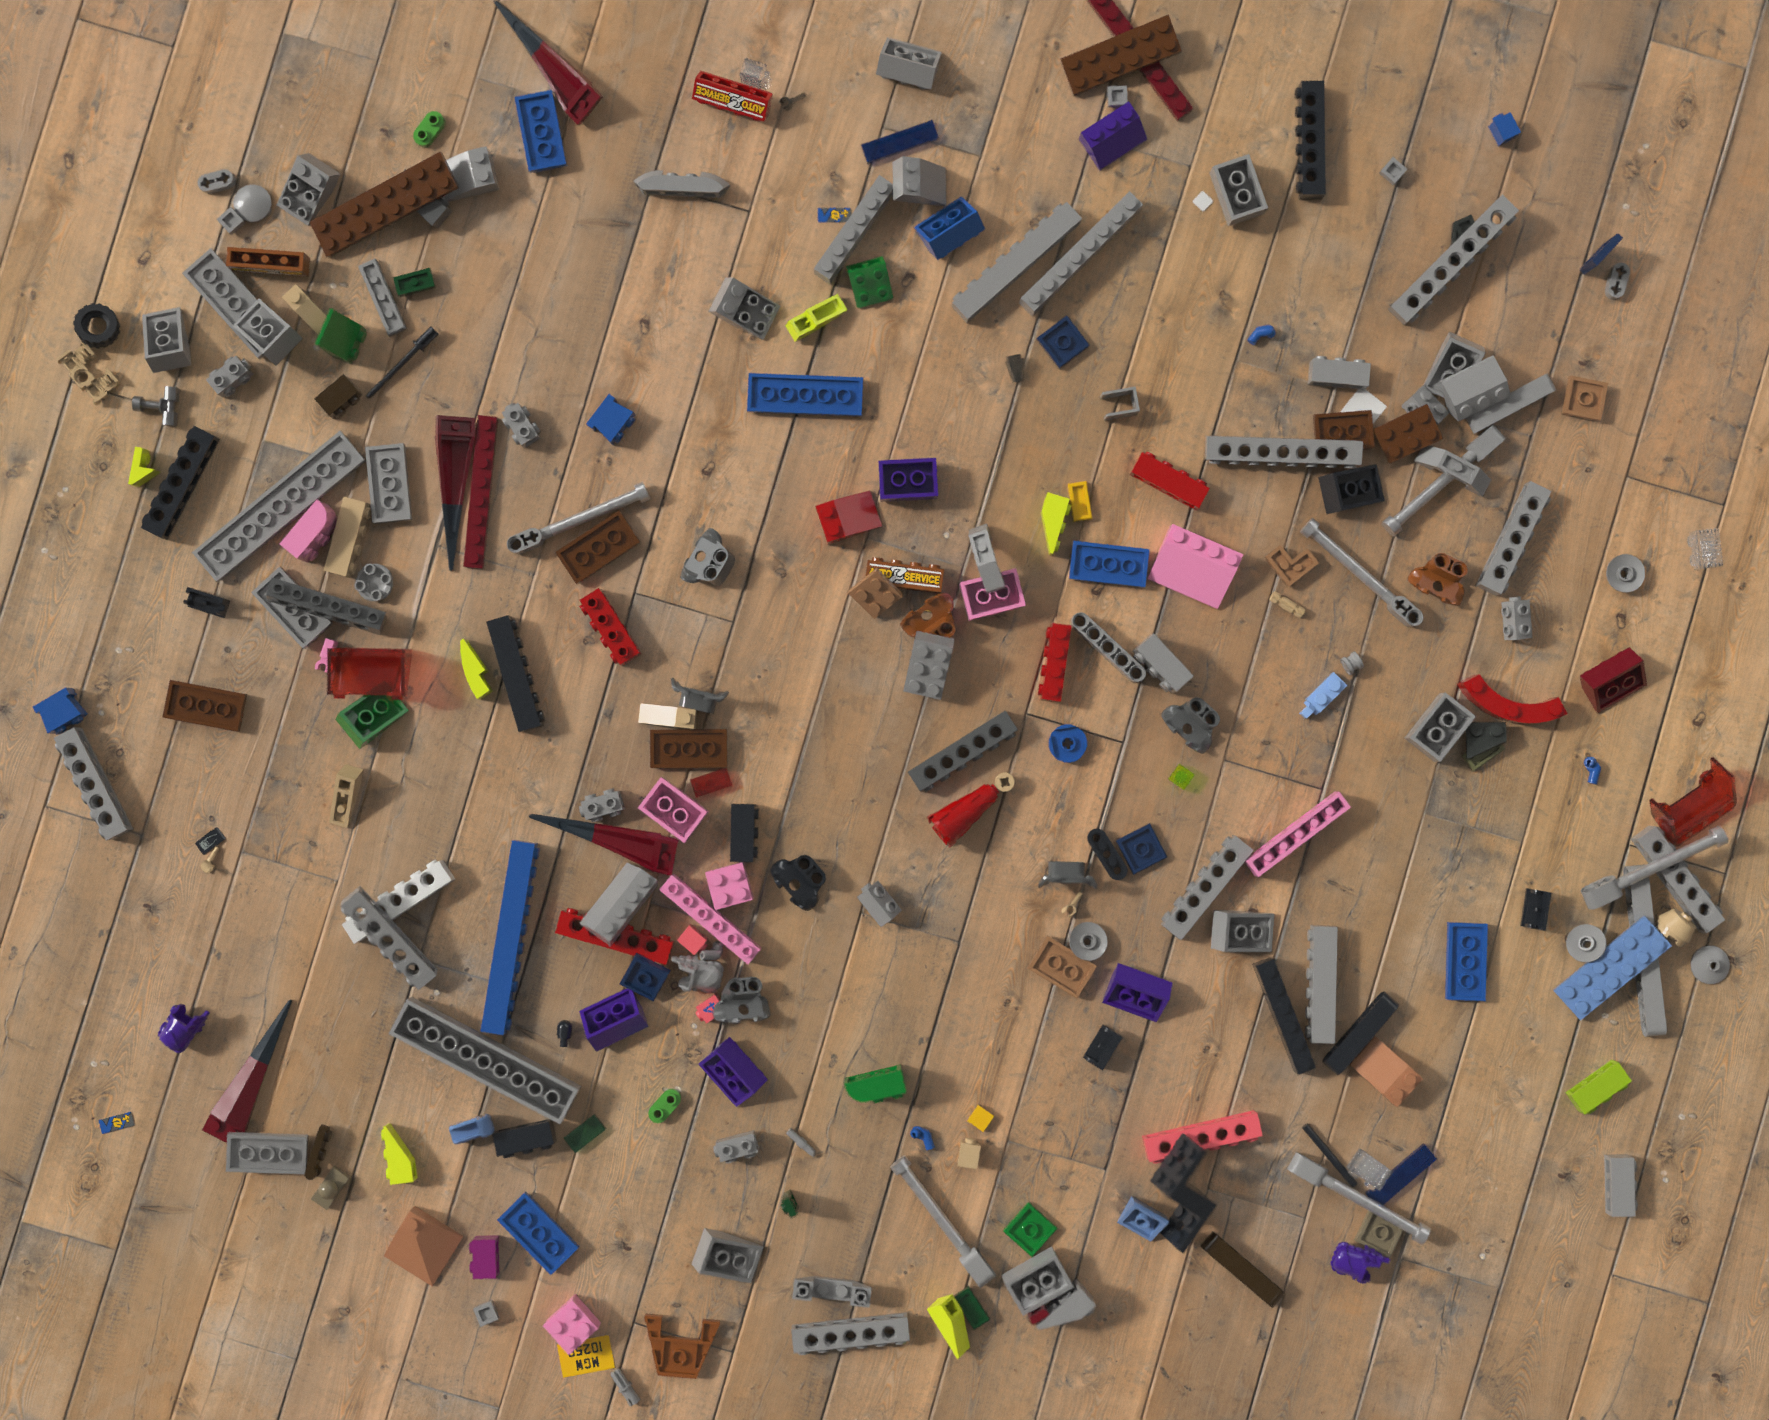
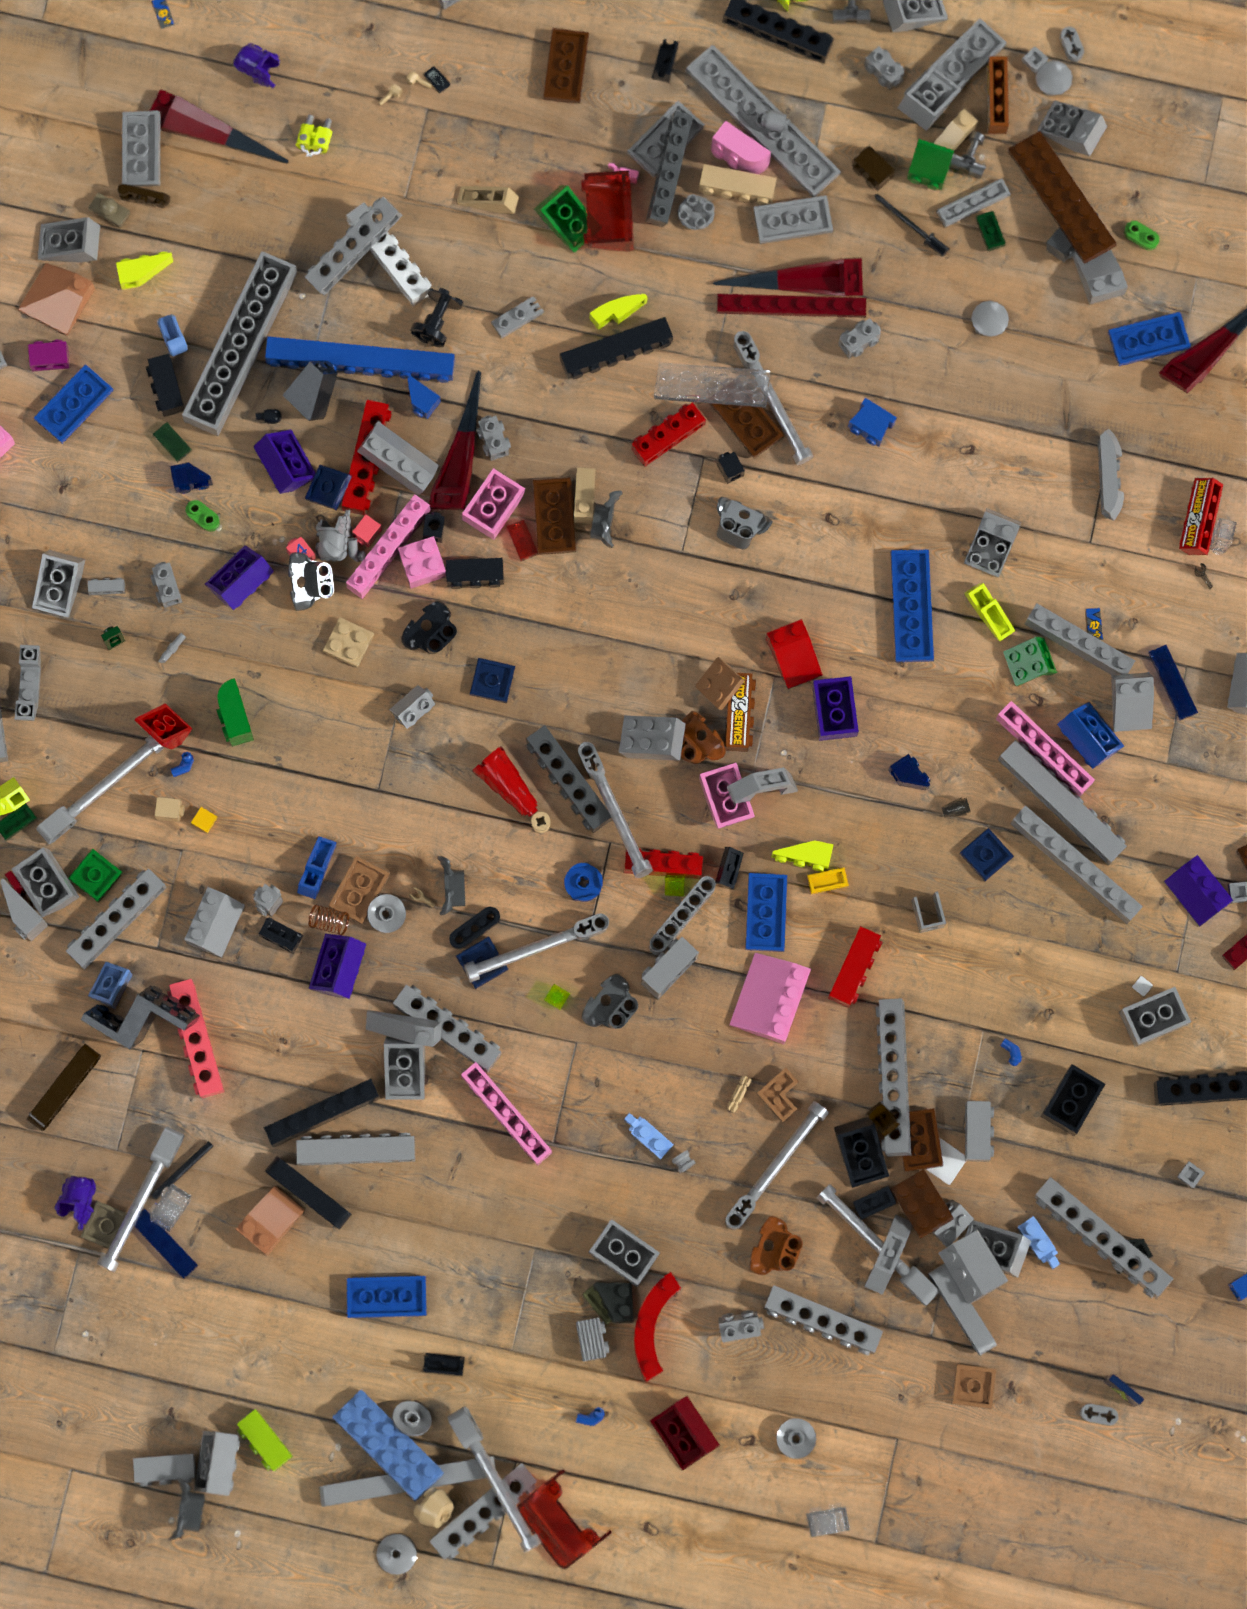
camera: 80 degrees right, 10 degrees down
(220, 886) = (394, 90): none -> tan hand
(266, 971) = (314, 138): none -> neon yellow piece
(281, 493) = (775, 121): none -> light grey brick
(337, 299) = (967, 160): none -> flat silver bar
(362, 1231) = (69, 241): none -> light grey slope
(475, 773) = (517, 317): none -> light grey hinge
(477, 859) = (430, 329): none -> black piece
(508, 291) = (990, 318): none -> light grey dish
(542, 988) = (313, 390): none -> black slope
(556, 876) = (422, 398): none -> blue slope
(562, 578) = (712, 384): none -> clear plate
(624, 1119) = (189, 477): none -> clear blue slope
(648, 566) = (730, 467): none -> black brick
(701, 869) = (431, 518): none -> black brick
(733, 1206) = (106, 586): none -> light grey piece
(806, 964) = (348, 642): none -> tan plate
(855, 821) = (492, 680): none -> dark blue tile
(888, 1157) = (164, 726): none -> red slope
(963, 273) = (1045, 749): none -> bright pink brick
(977, 413) = (908, 774): none -> clear blue slope
(1036, 1008) = (316, 867): none -> blue slope
(1062, 597) = (729, 867): none -> black plate
(1062, 685) = (641, 867): none -> flat silver piece
(1069, 1059) = (267, 899): none -> light grey brick
(1077, 653) = (674, 885): none -> clear neon green plate
(1086, 1113) = (214, 922): none -> light grey slope
(1089, 1010) = (338, 920): none -> dark orange piece
(1113, 1245) = (114, 929): none -> light grey brick
(1152, 857) = (474, 970): none -> flat silver piece
(1208, 927) = (405, 1028): none -> light grey slope
(1316, 278) = (1073, 1100): none -> black brick
(1330, 463) = (882, 1118): none -> dark brown bracket
(1402, 480) = (874, 1203): none -> black plate
(1448, 323) = (1040, 1243): none -> light blue hinge
(1520, 764) = (591, 1339): none -> light grey brick
(1622, 1136) = (216, 1463): none -> light grey brick
(1664, 1163) = (189, 1511): none -> dark grey piece

